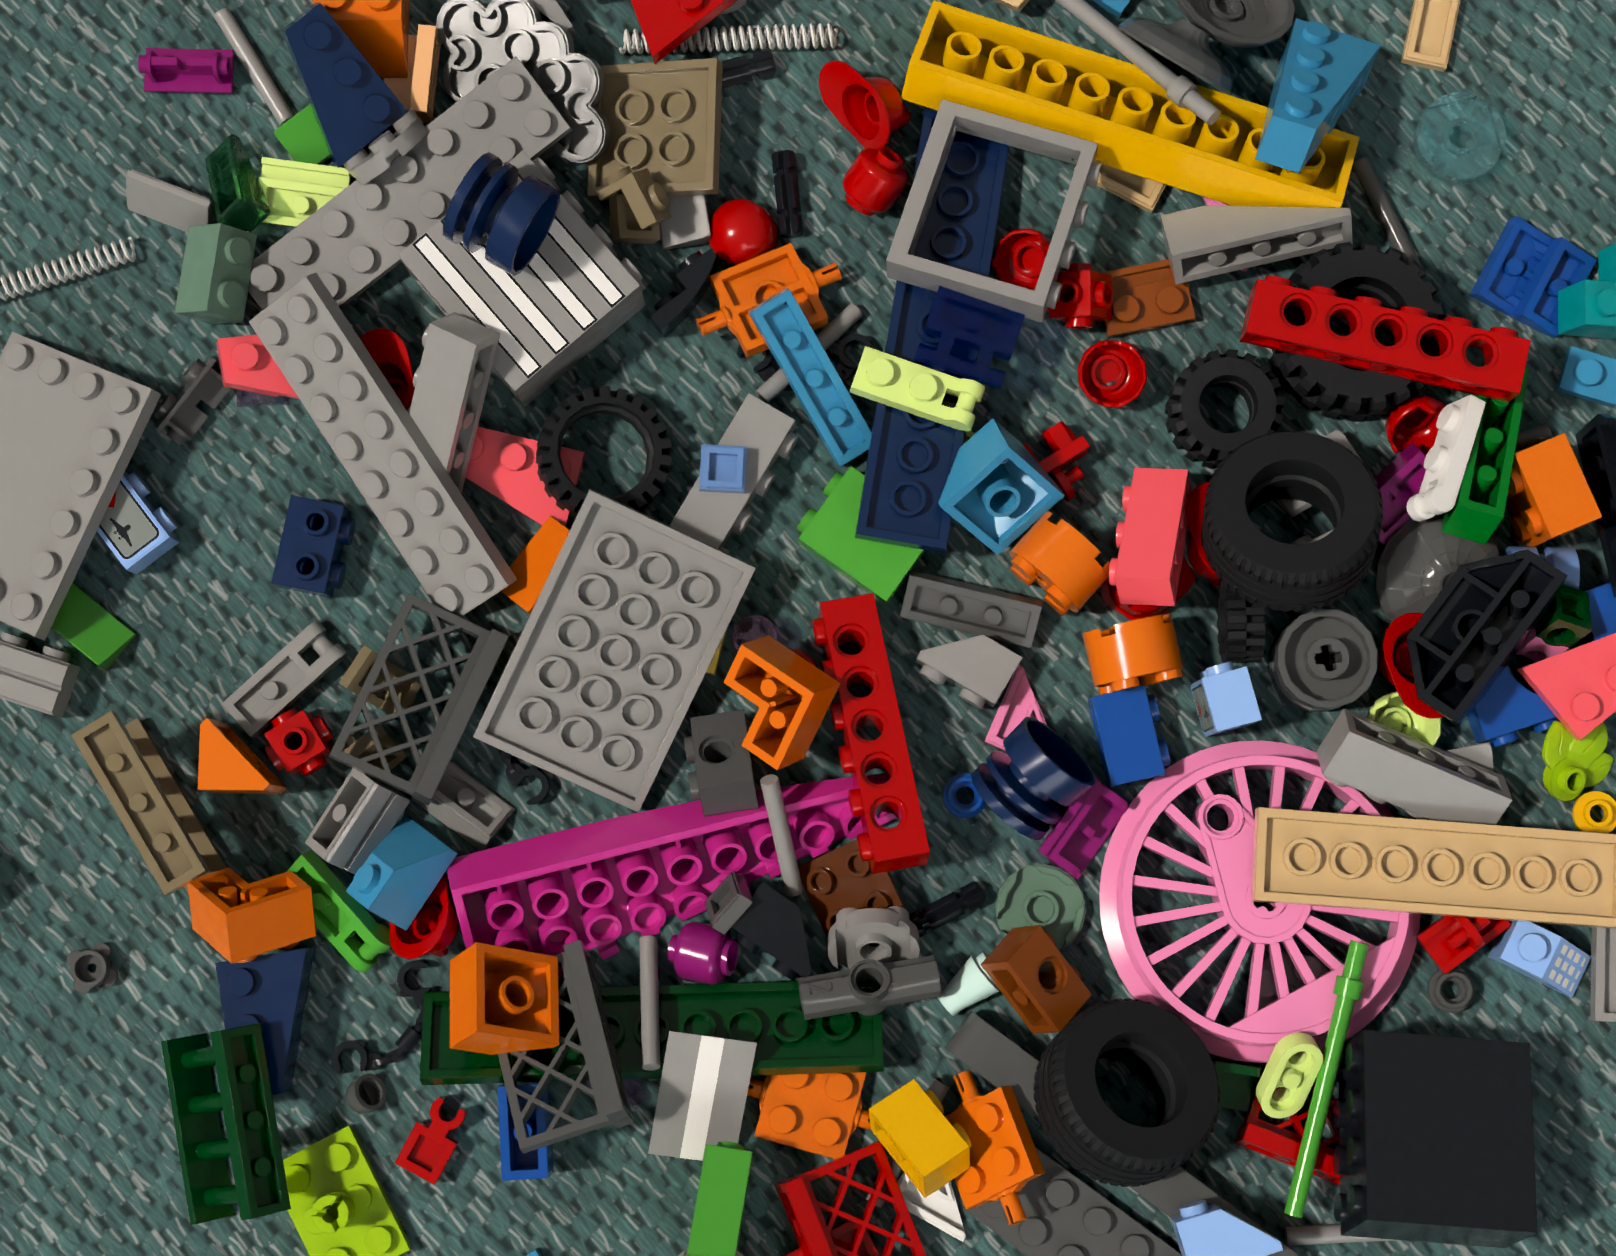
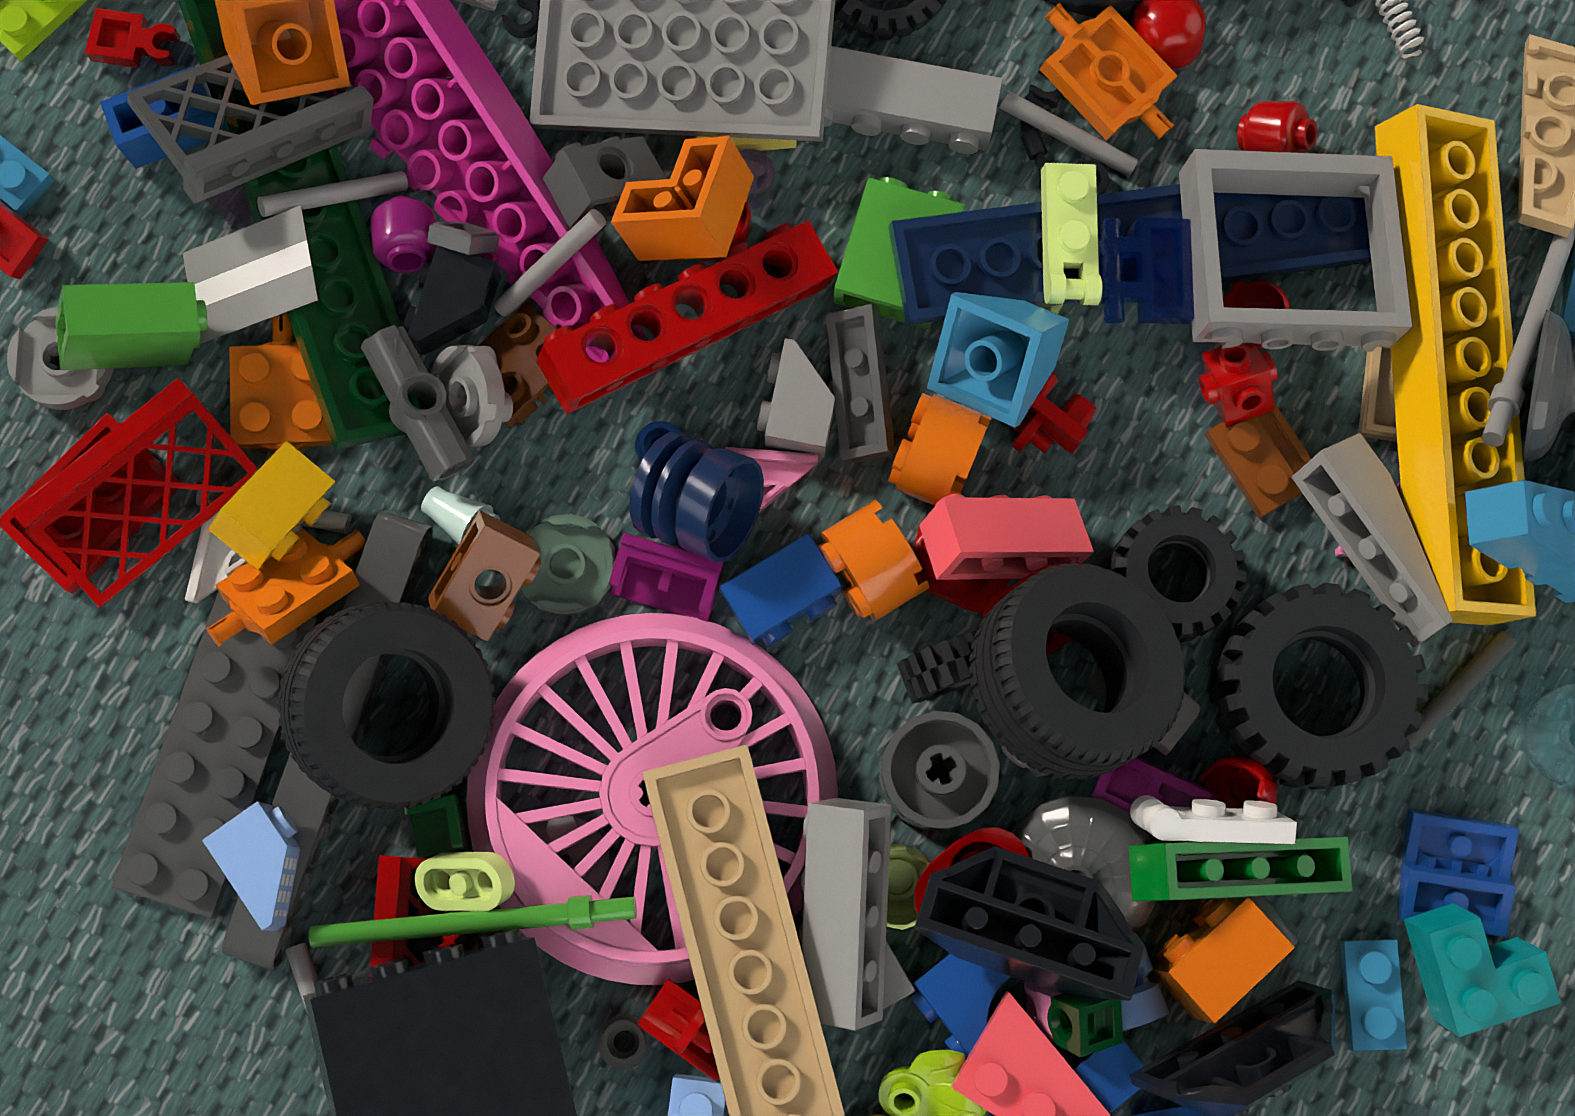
camera: 65 degrees right, 5 degrees down
(723, 468) = (912, 76): medium blue tile -> none
(787, 193) = (1227, 59): black axle -> none
(812, 376) = (1047, 129): dark azure plate -> none
(863, 105) = (1355, 97): red piece -> none
(948, 908) = (531, 465): black axle -> none
(1110, 362) = (1176, 438): red hair -> none
(1225, 699) = (856, 675): light blue brick -> none
(1502, 348) = (1305, 730): red brick -> none

